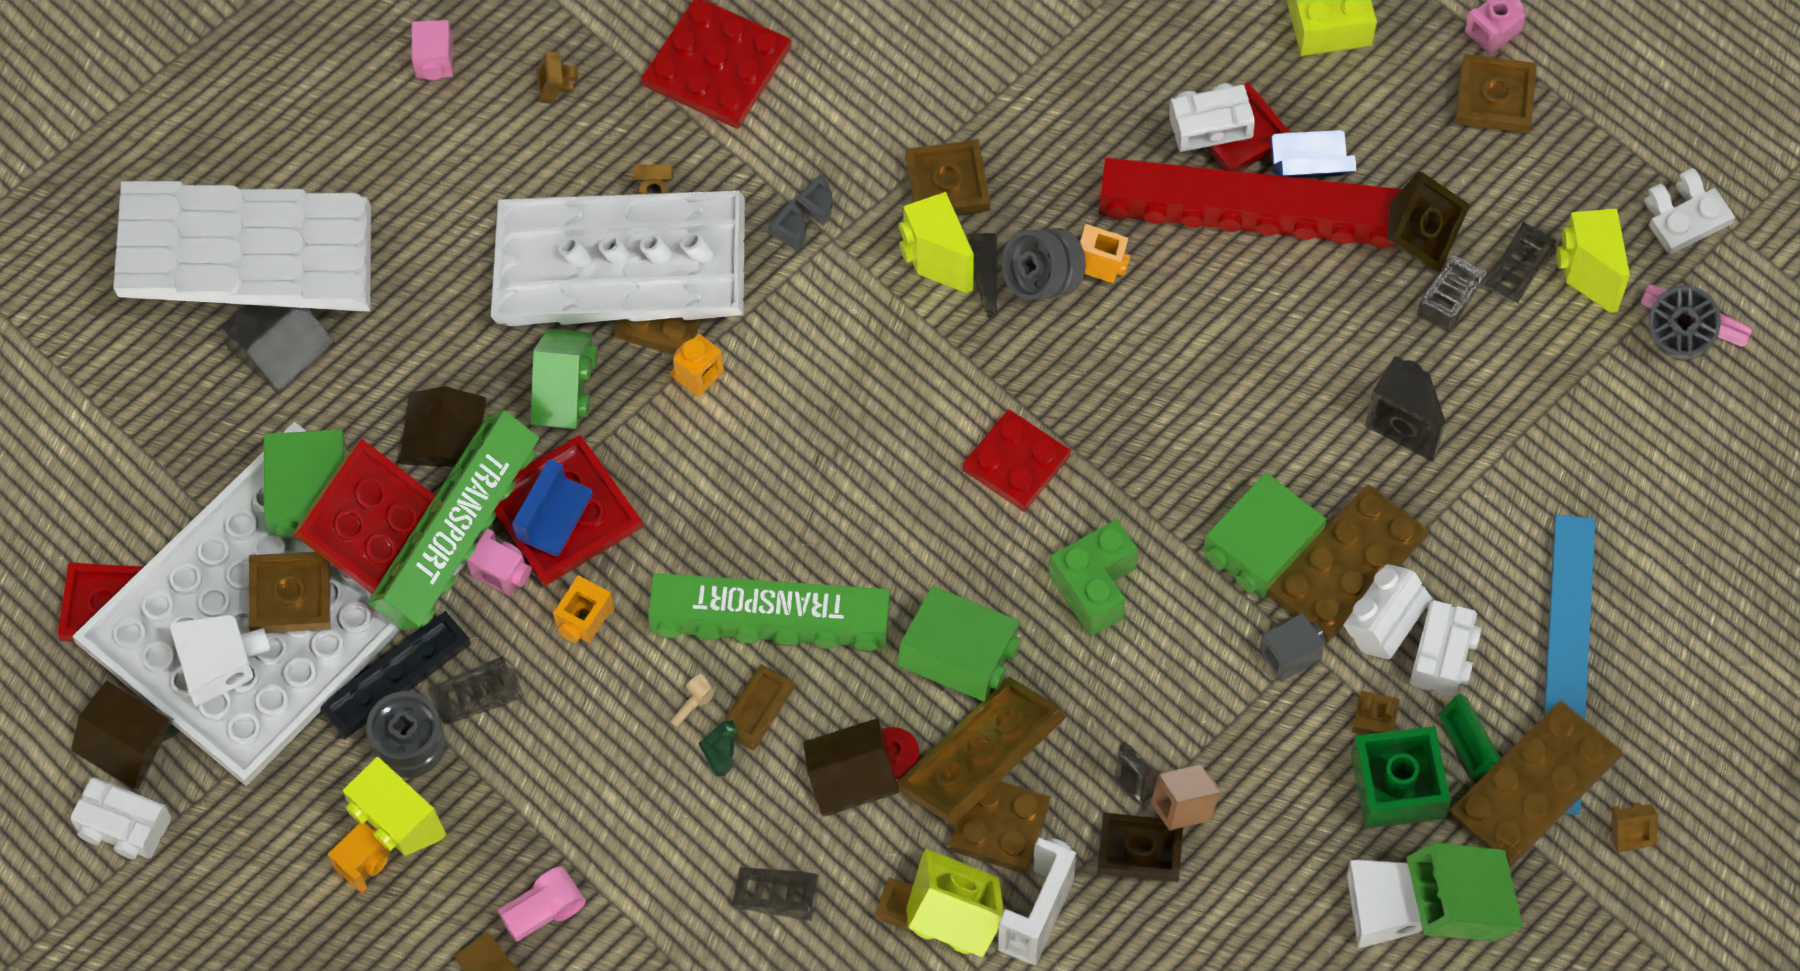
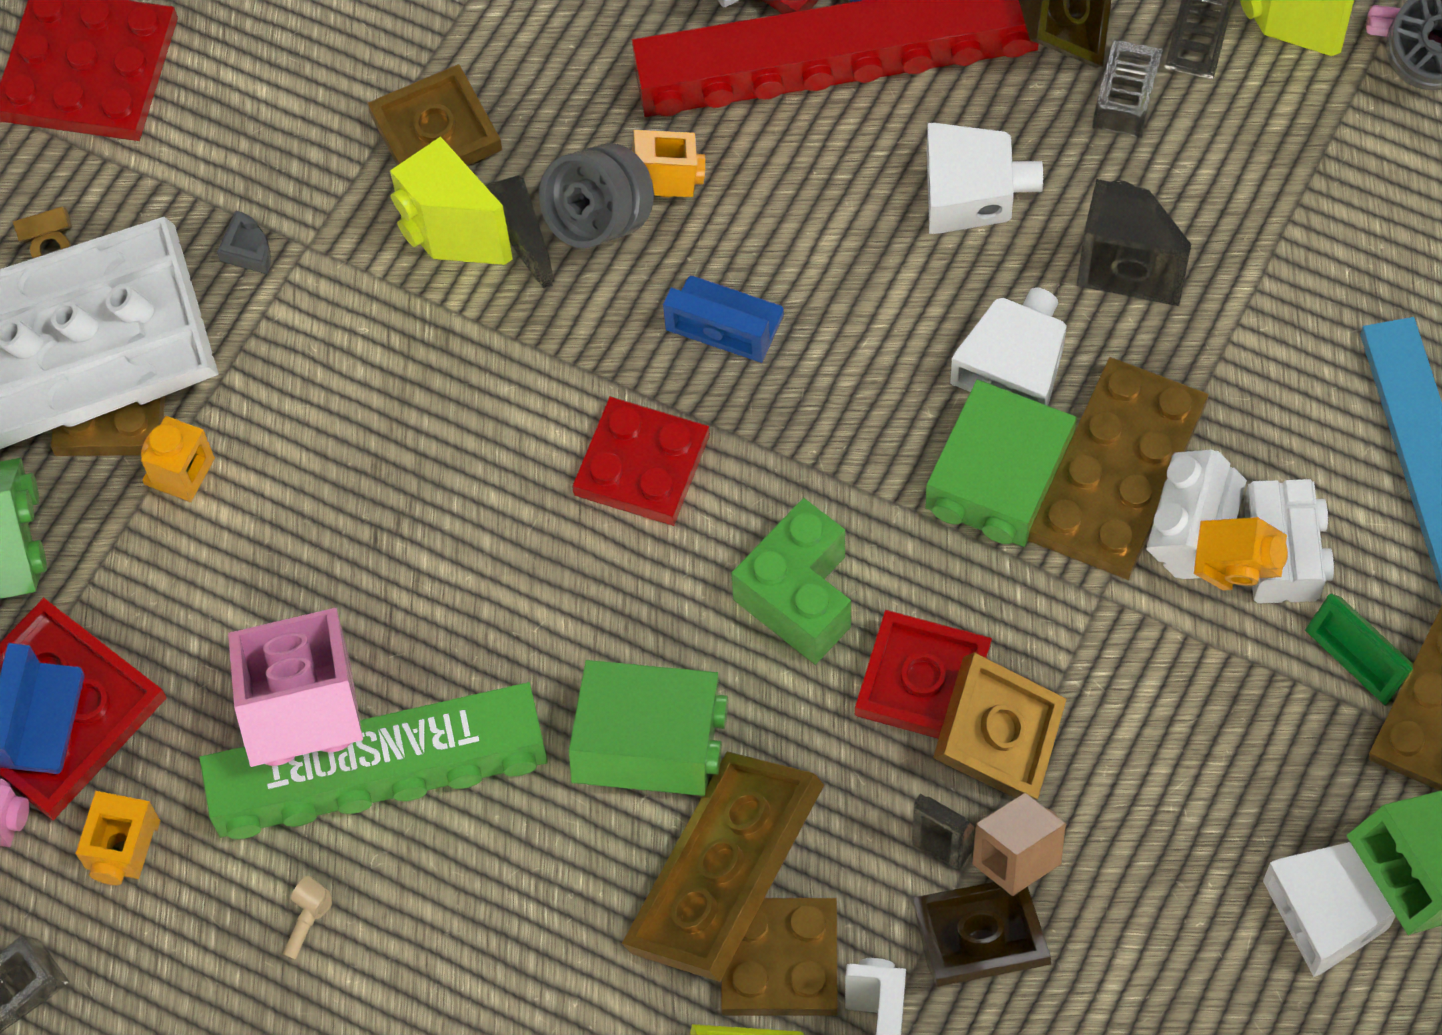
camera: 15 degrees left, 0 degrees up
(719, 747) = (363, 969): clear green tile -> none
(730, 545) = (293, 688): none -> bright pink brick
(759, 705) = (397, 897): pearl gold tile -> none
(816, 200) = (271, 201): dark grey tile -> none
(850, 767) = (551, 942): dark brown slope -> none
(902, 750) = (601, 903): red piece -> none
(1106, 375) = (722, 318): none -> blue panel
(1160, 666) = (914, 672): none -> red plate
(1199, 716) = (999, 727): none -> pearl gold plate
(1293, 646) = (1088, 597): dark grey brick -> none
(1302, 458) = (1014, 348): none -> white torso
(1316, 327) = (974, 177): none -> white torso
(1375, 713) = (1226, 656): pearl gold tile -> none
(1400, 777) = (1293, 729): green brick -> none
(1404, 645) = (1239, 552): none -> light orange brick

